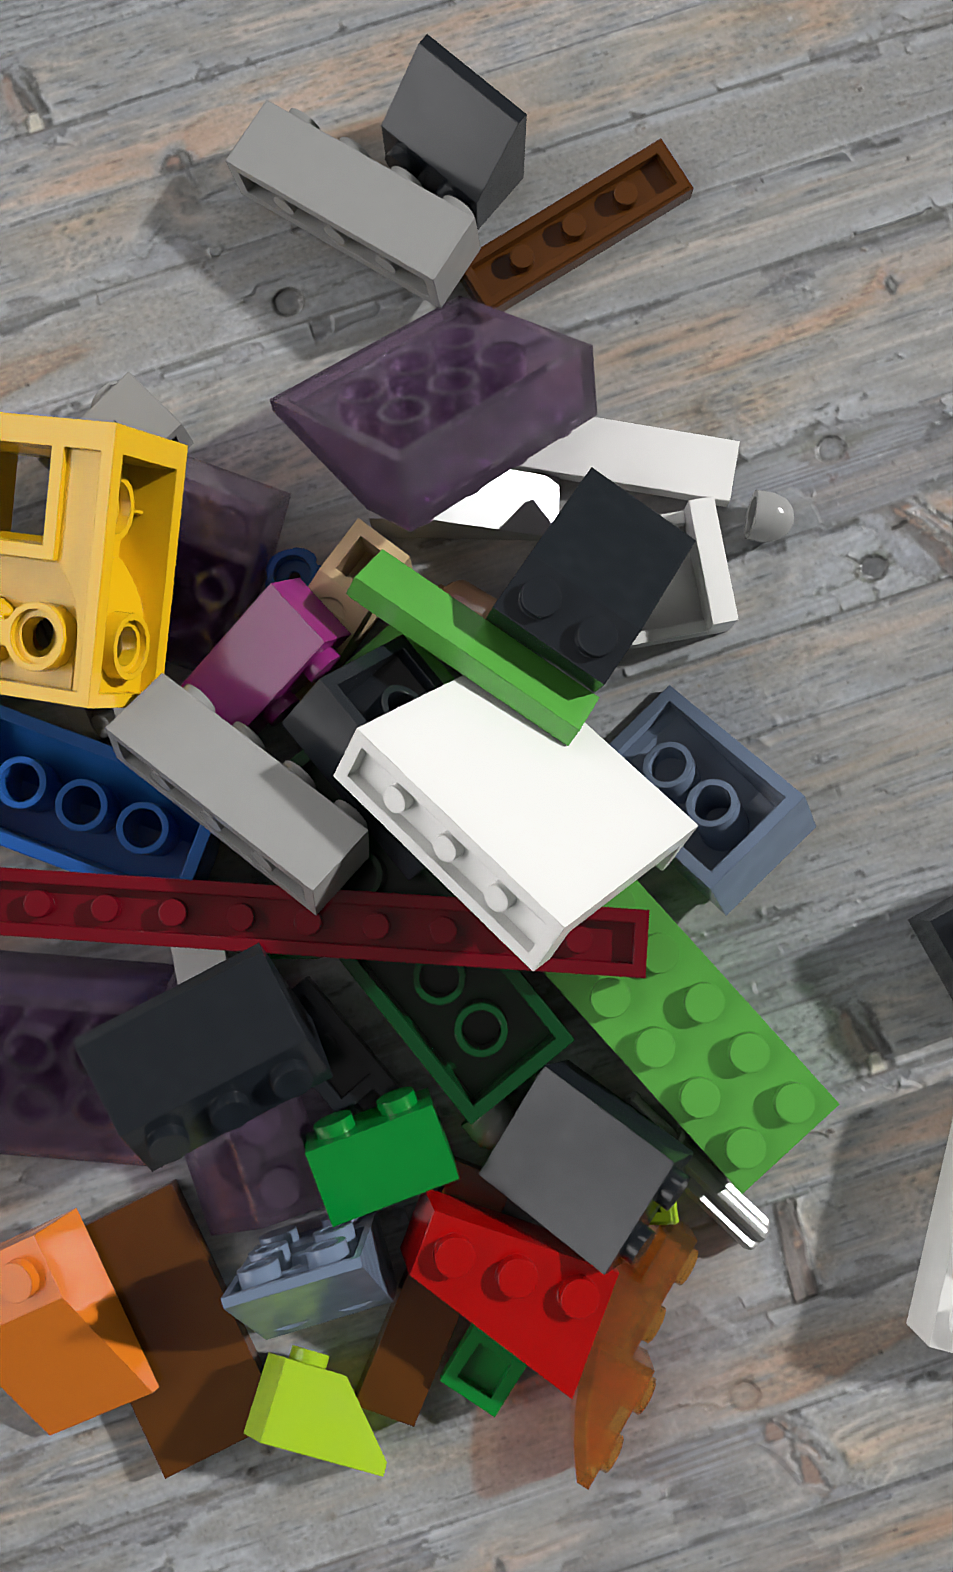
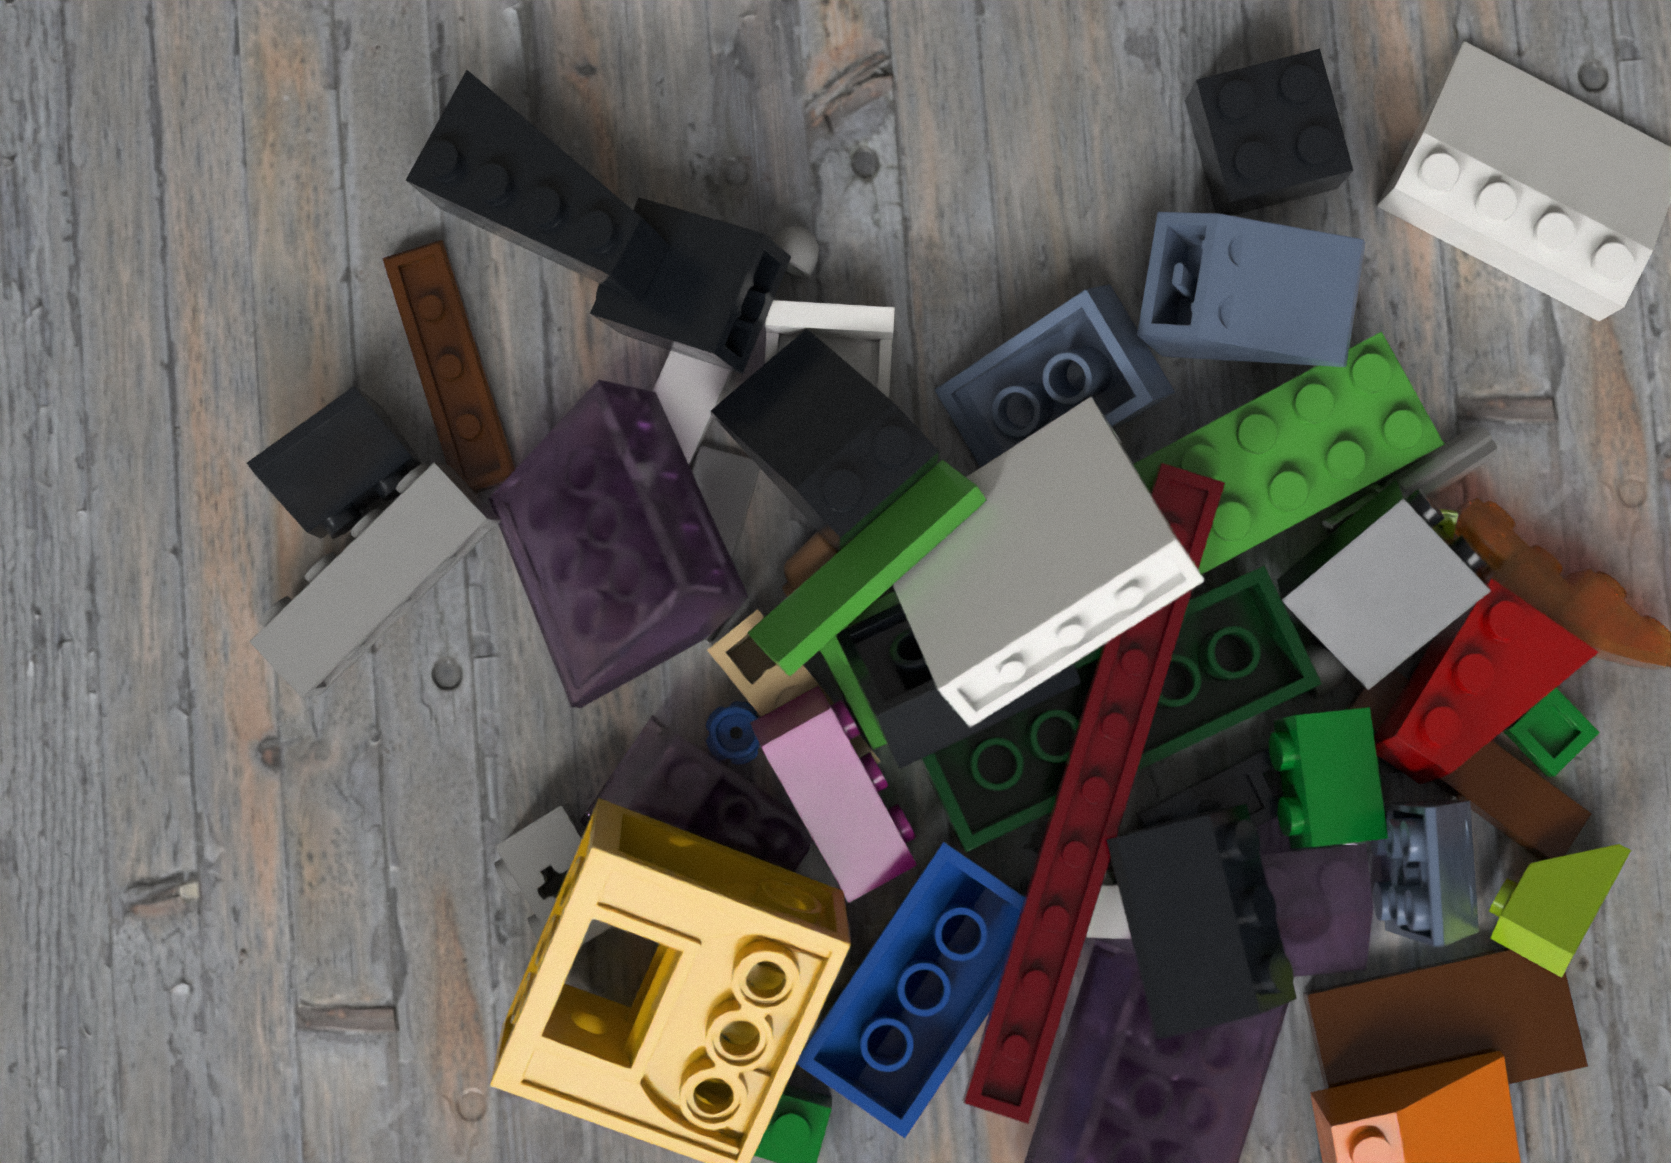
camera: 80 degrees left, 0 degrees up
(241, 791) = (955, 824): light grey brick -> none
(710, 421) = (706, 292): none -> black brick
(764, 236) = (524, 188): none -> black wedge
(846, 963) = (1249, 291): none -> sand blue slope

